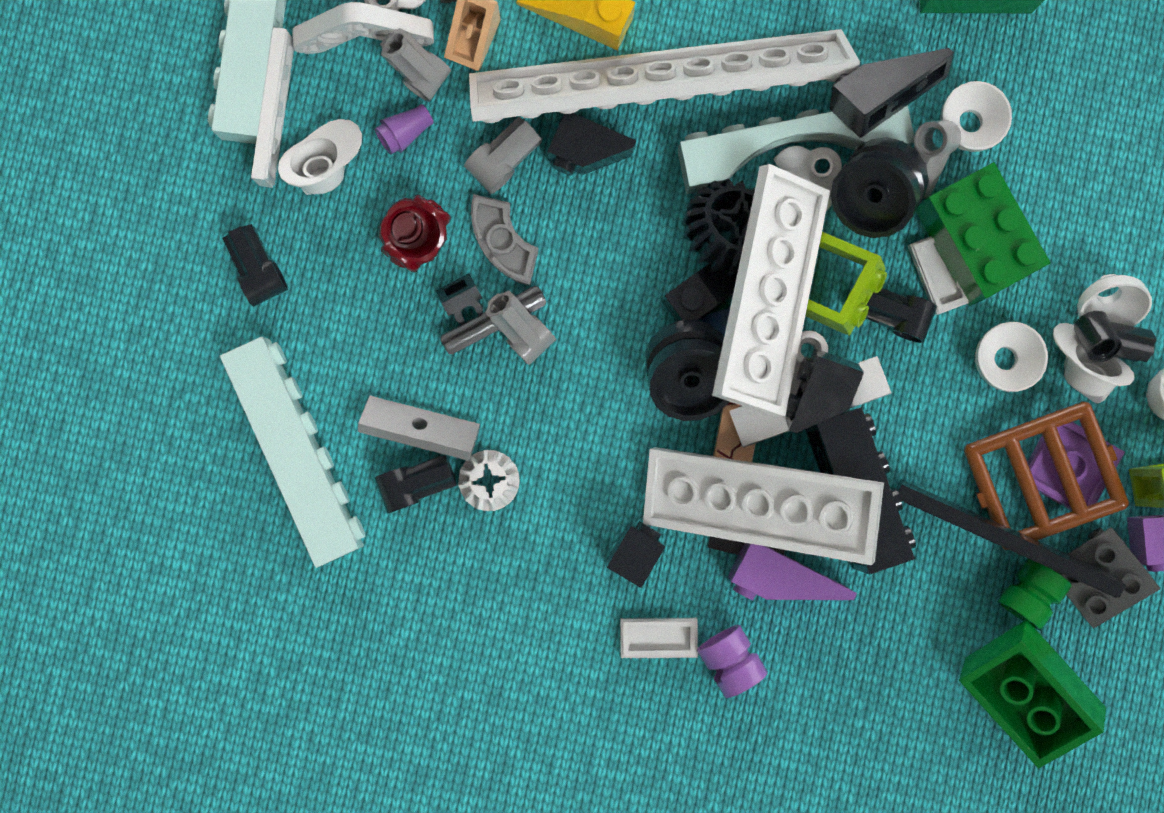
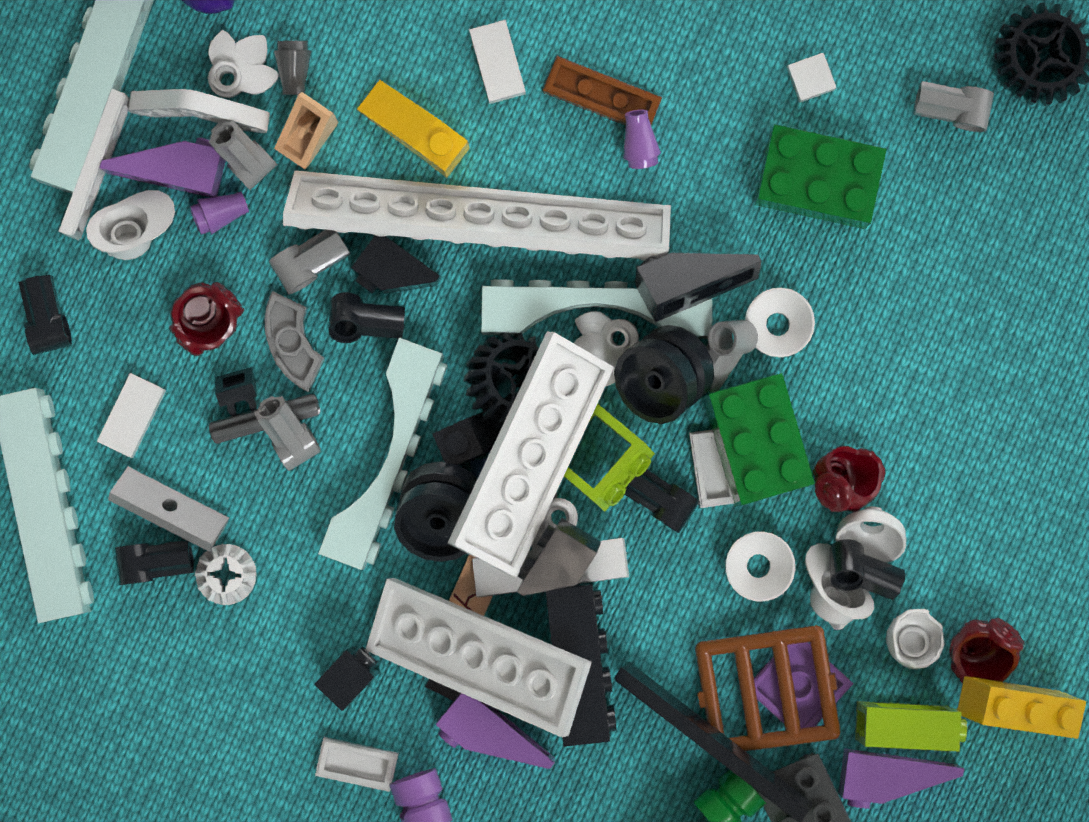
camera: 25 degrees right, 0 degrees up
(354, 92) = (176, 166): none -> medium lavender slope
(362, 345) = (131, 415): none -> white tile
(561, 202) = (352, 318): none -> black piece
(628, 250) = (411, 378): none -> light aqua arch
(1079, 252) = (848, 478): none -> dark red hair

